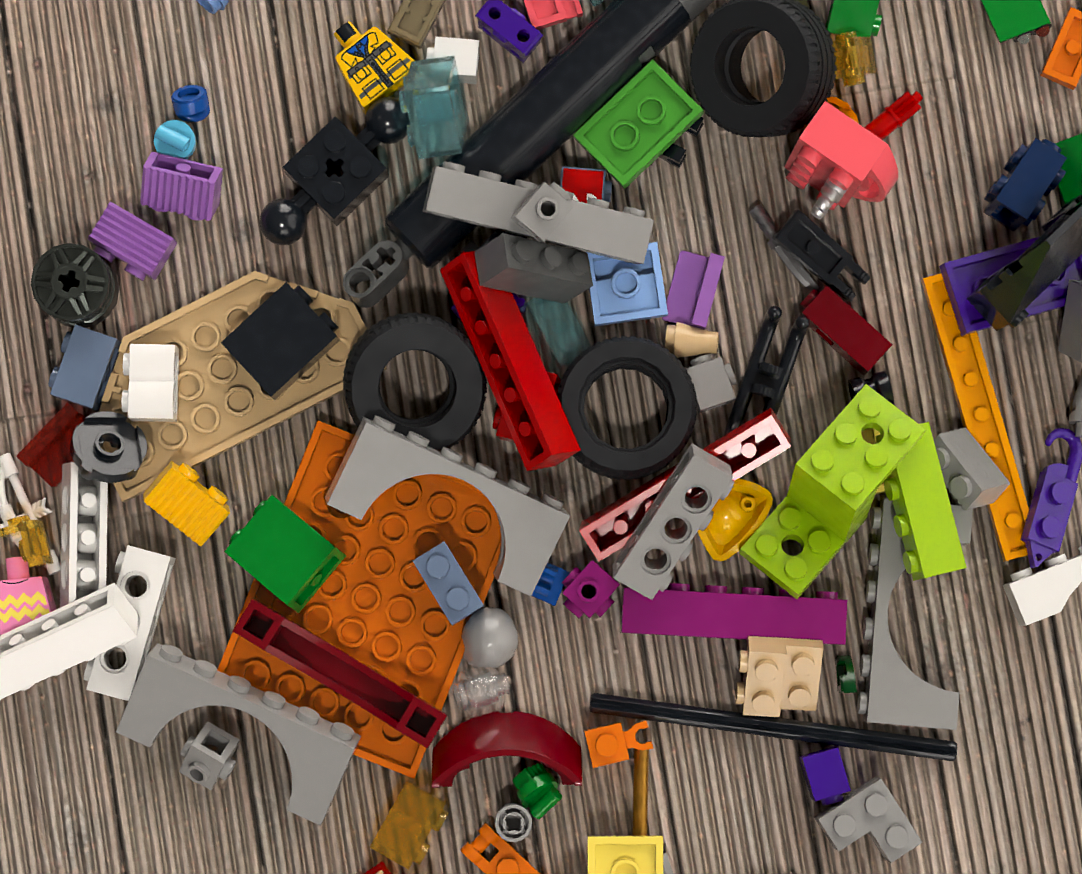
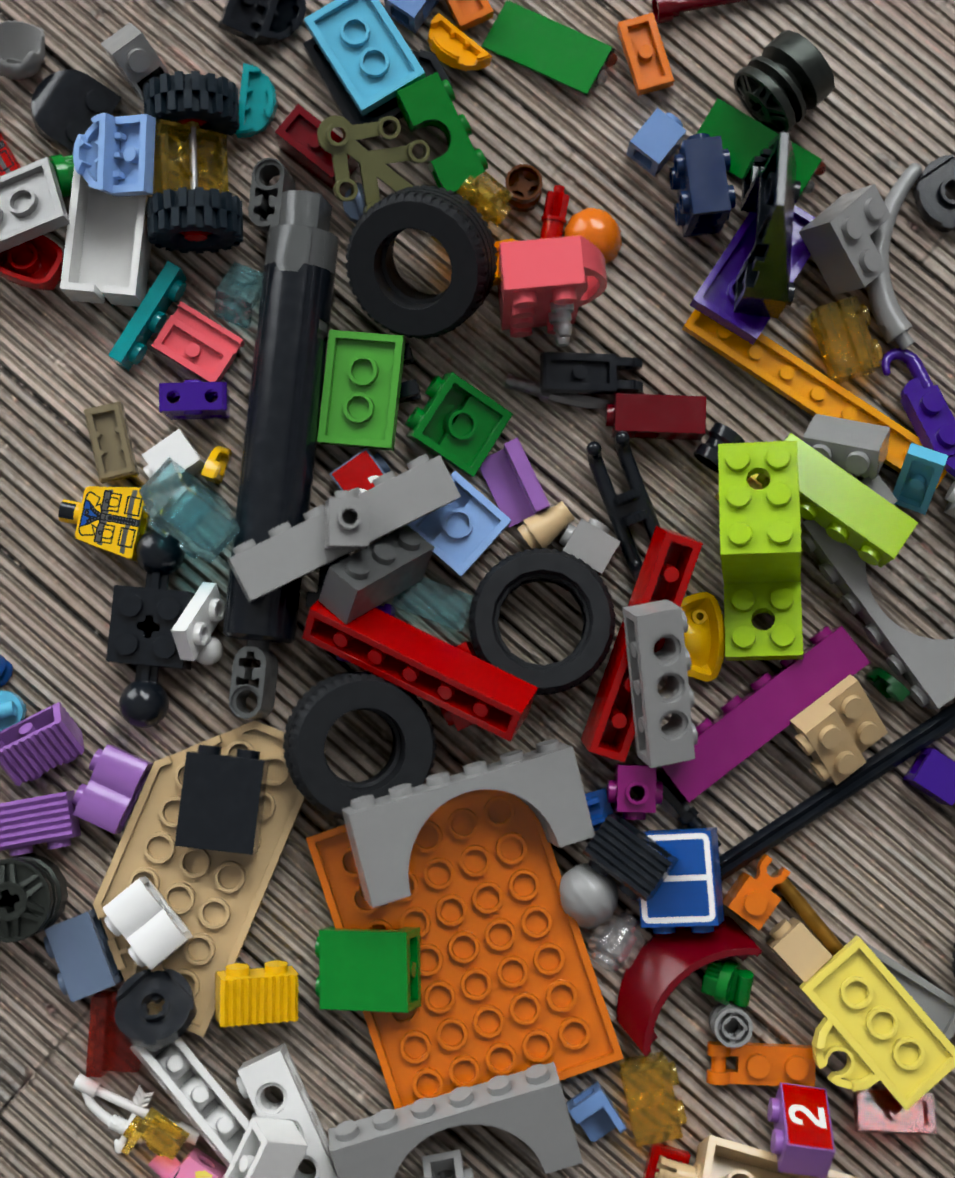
camera: 40 degrees left, 0 degrees up
(207, 265) = (111, 789): none -> medium lavender brick
(340, 672) = (456, 1033): dark red arch -> none
(359, 802) = (595, 1112): none -> medium blue panel
(370, 196) = (197, 623): none -> white plate
(448, 583) = (521, 882): sand blue brick -> none
(484, 90) = (216, 464): none -> yellow tile
(542, 632) = (629, 857): none -> black brick
(566, 683) = (692, 888): none -> blue brick
(611, 809) = (798, 948): none -> tan brick
(614, 644) = (687, 814): none -> black piece
(689, 209) = (457, 423): none -> green plate
(894, 66) = (524, 179): none -> reddish brown wheel
(915, 154) = (597, 228): none -> orange hair
(999, 539) = (919, 478): none -> medium azure plate
(1023, 122) = (656, 141): none -> medium blue brick
(1037, 392) = (845, 339): none -> clear yellow brick

